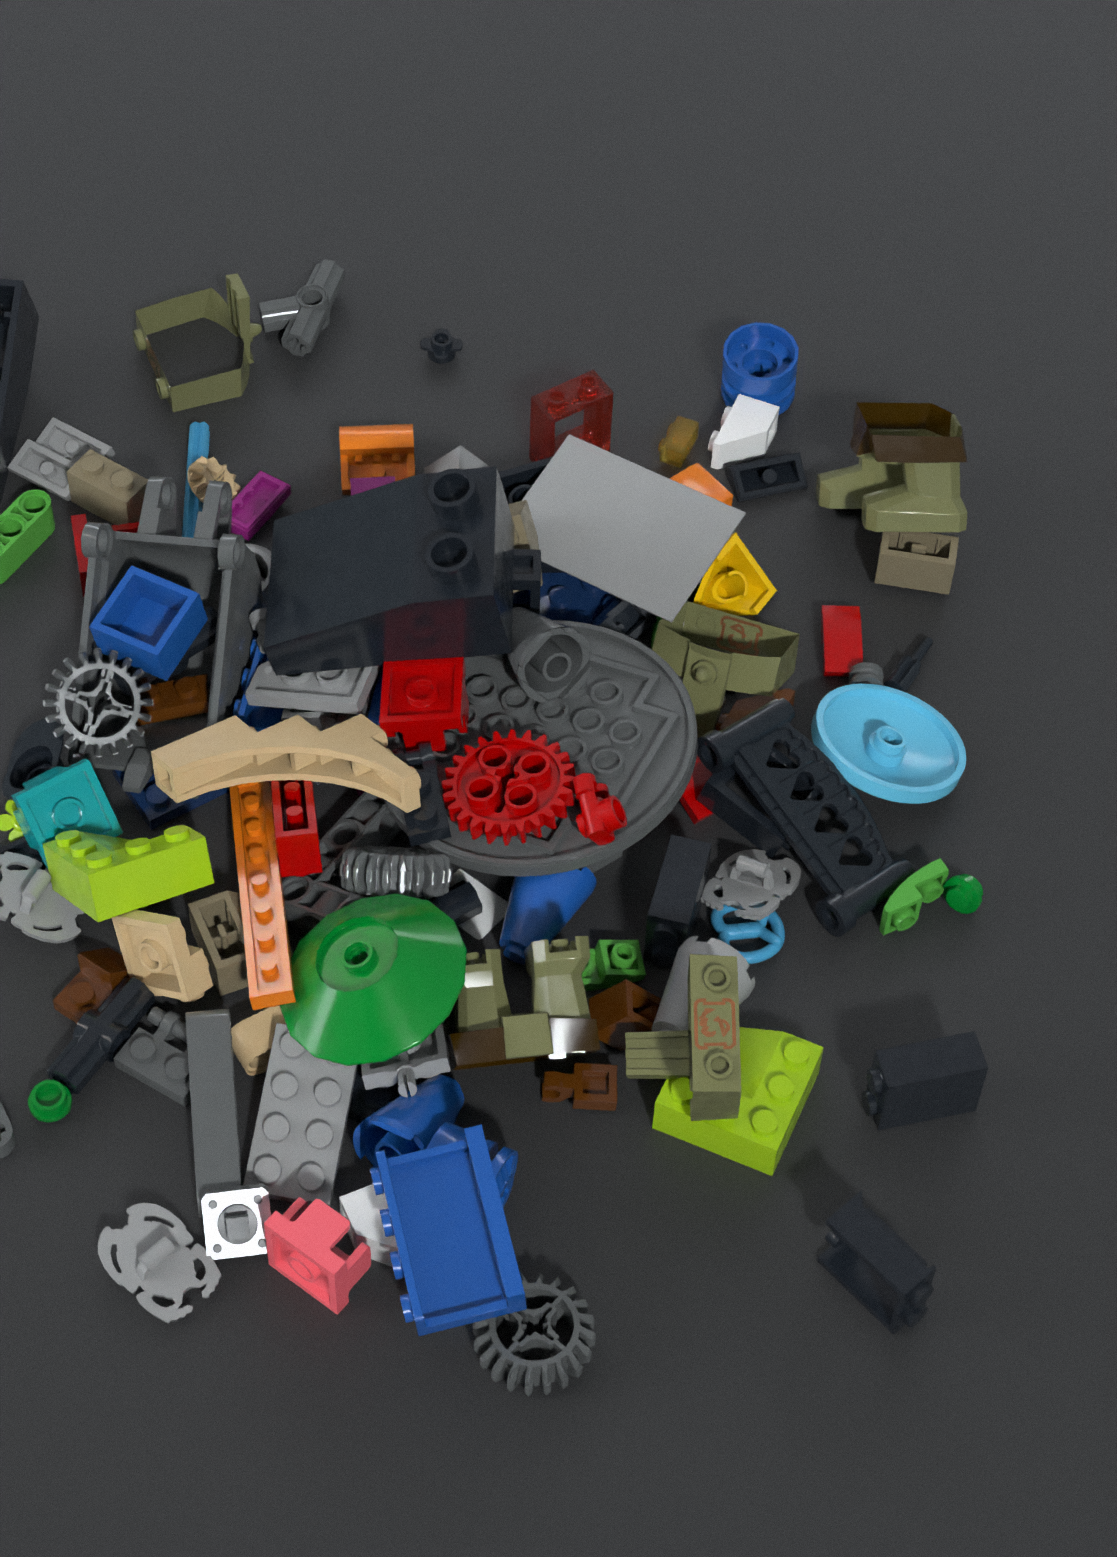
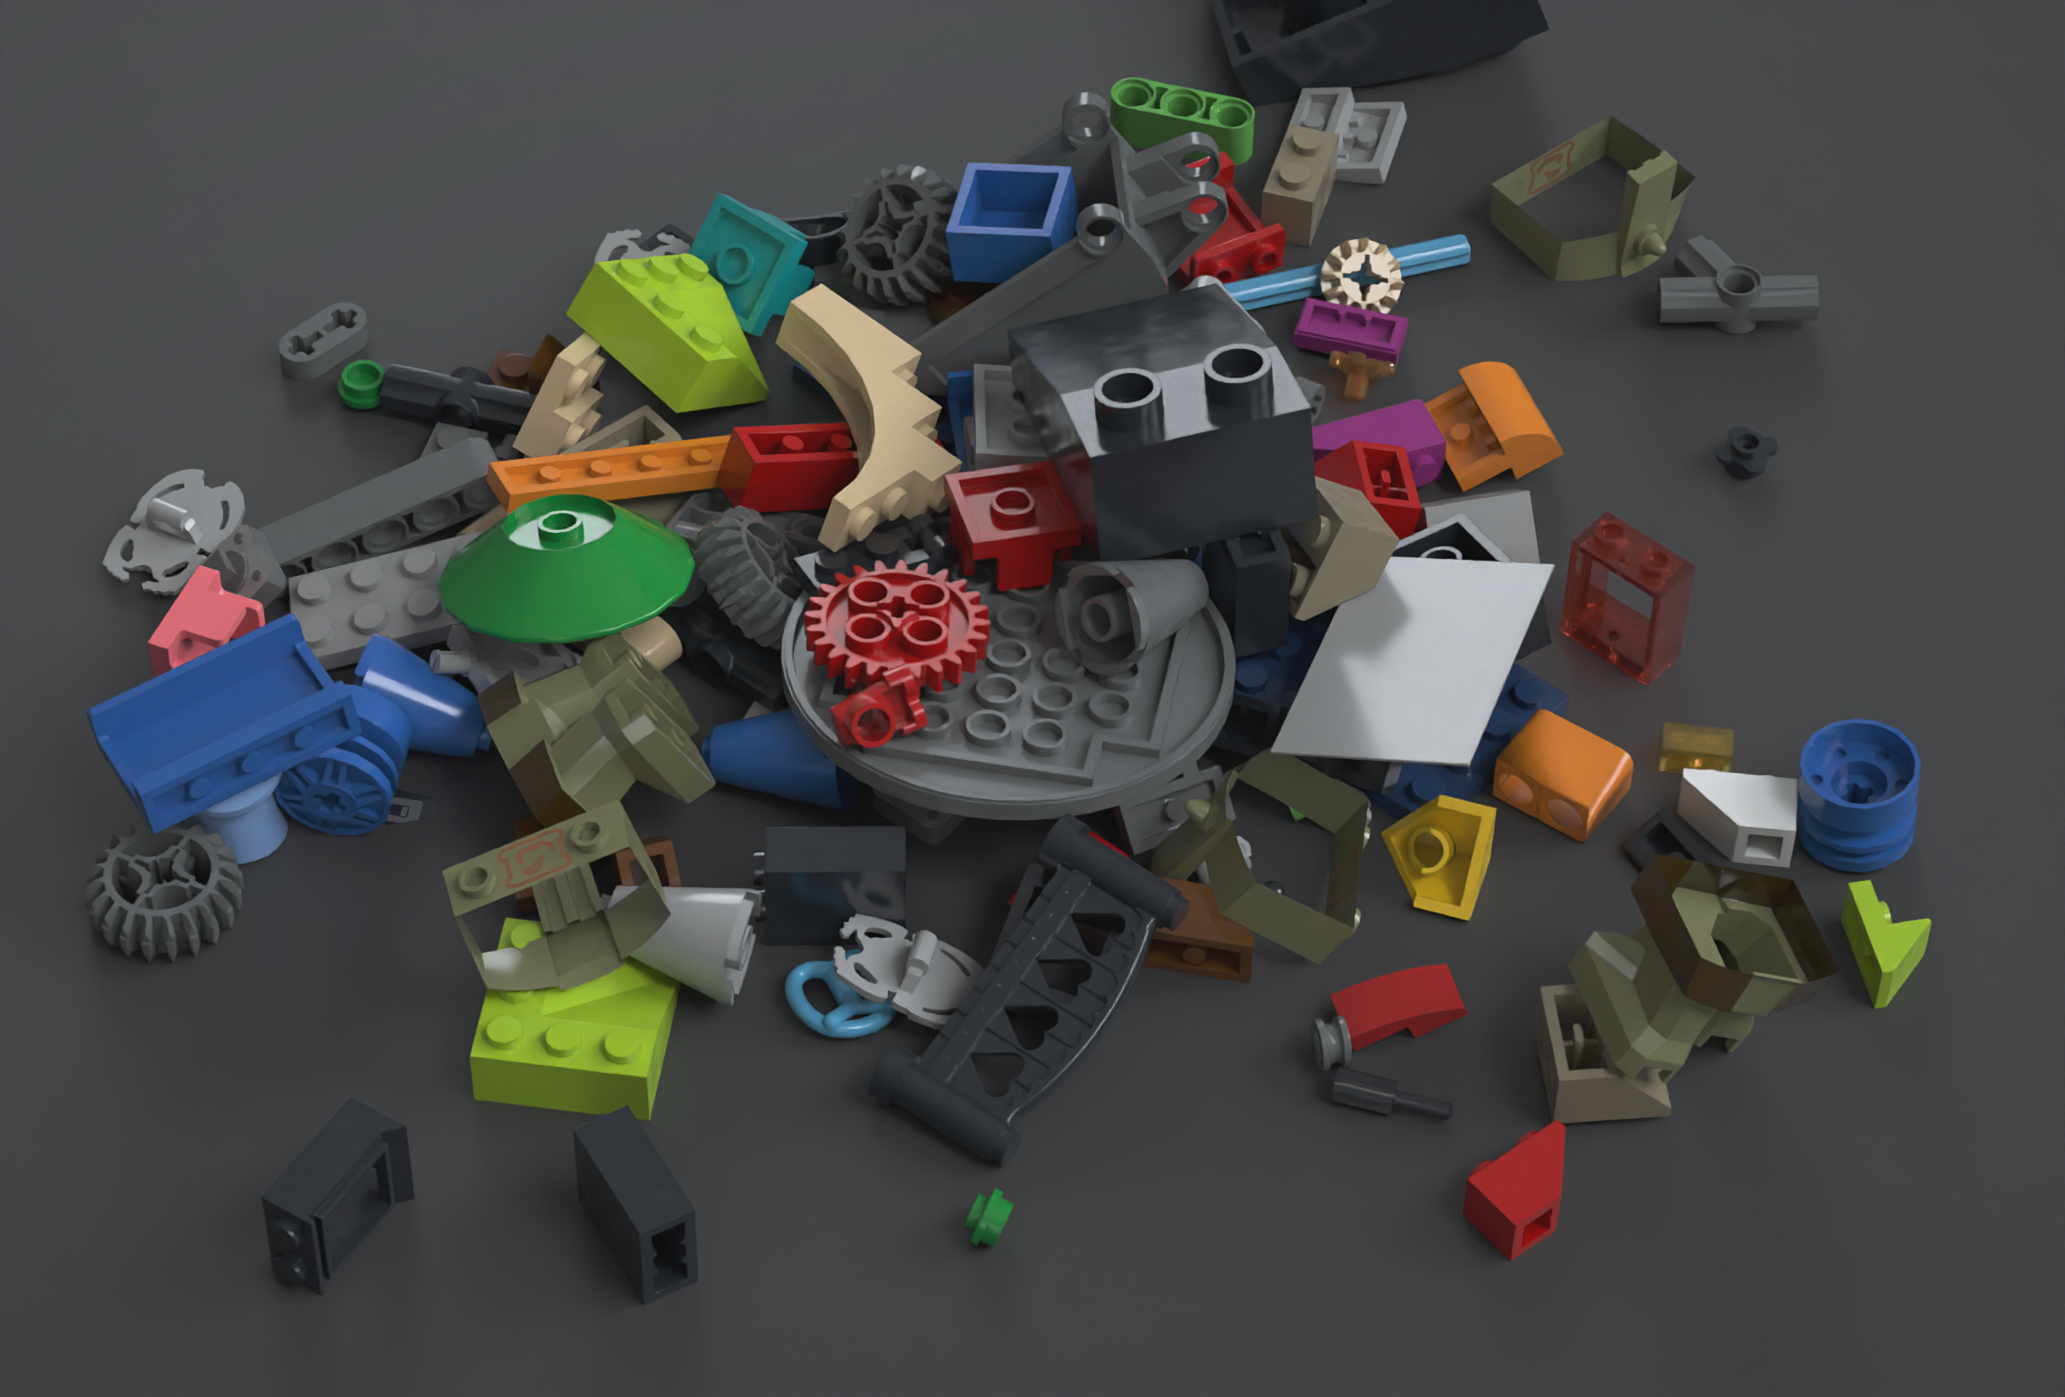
camera: 75 degrees right, 5 degrees down
(295, 504) = (1360, 371): none -> clear orange plant
(613, 963) = (725, 840): bright green slope -> none
(841, 401) = (1882, 948): none -> lime slope
(889, 743) = (1209, 1075): medium azure dish -> none
(906, 901) = (949, 1151): bright green slope -> none
(1006, 617) = (1520, 1192): none -> red slope

